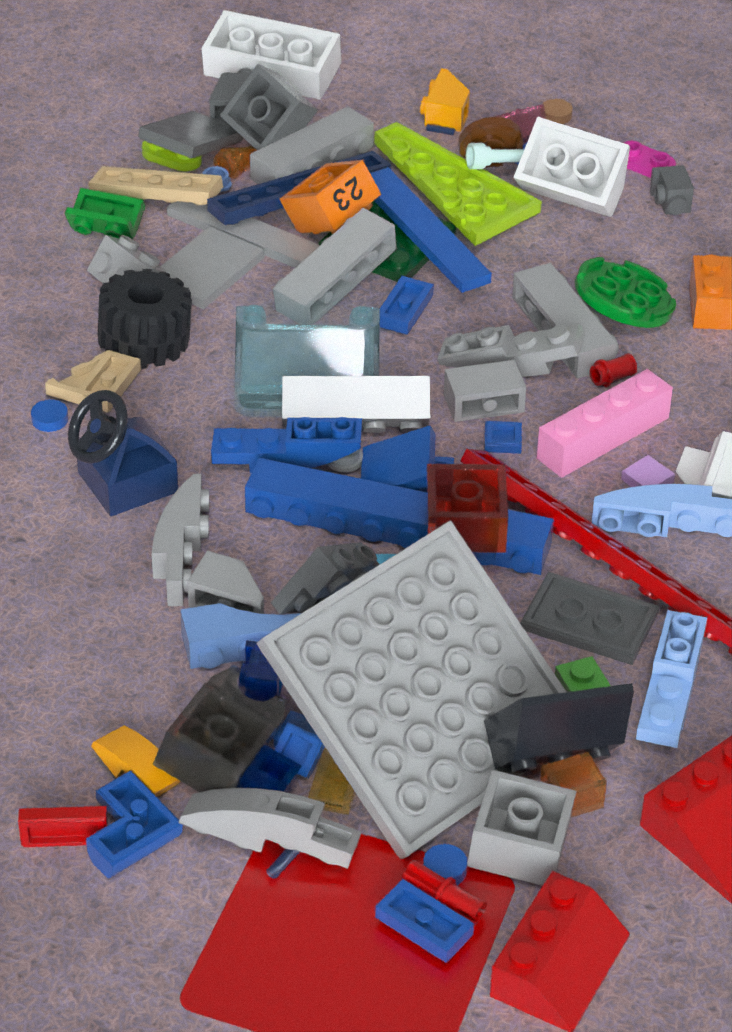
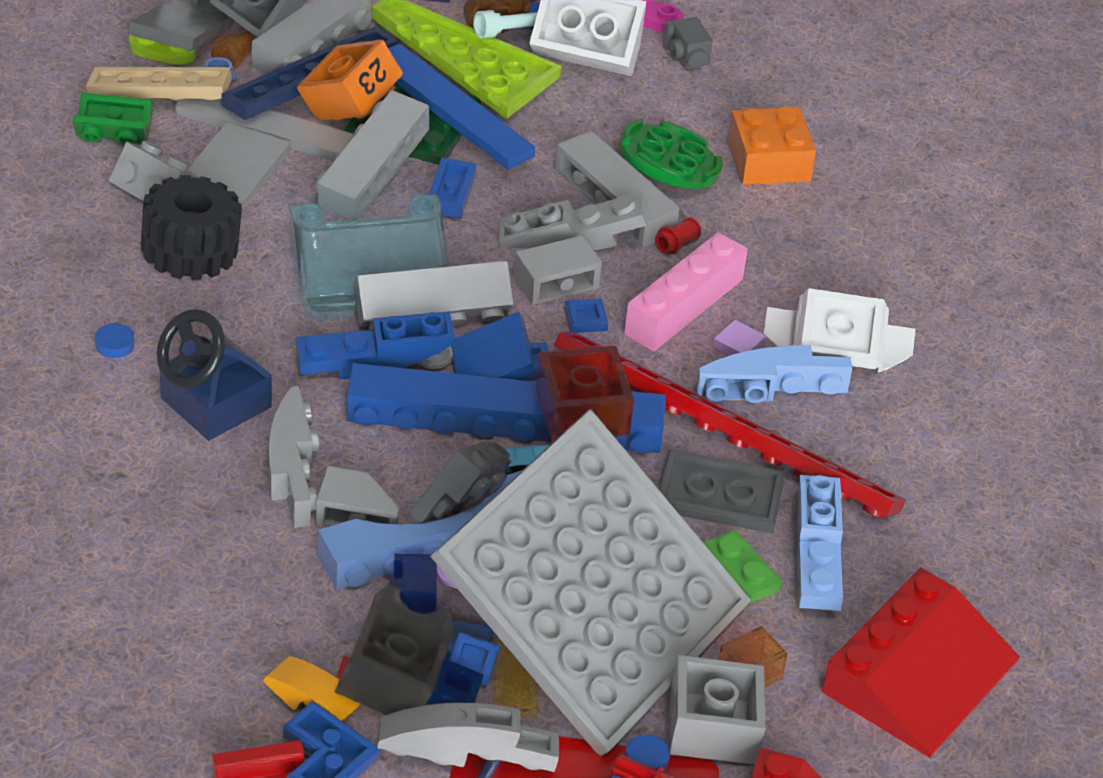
camera: 15 degrees left, 0 degrees up
(105, 372) = (155, 298): tan wing -> none
(559, 727) = (730, 605): black slope -> none

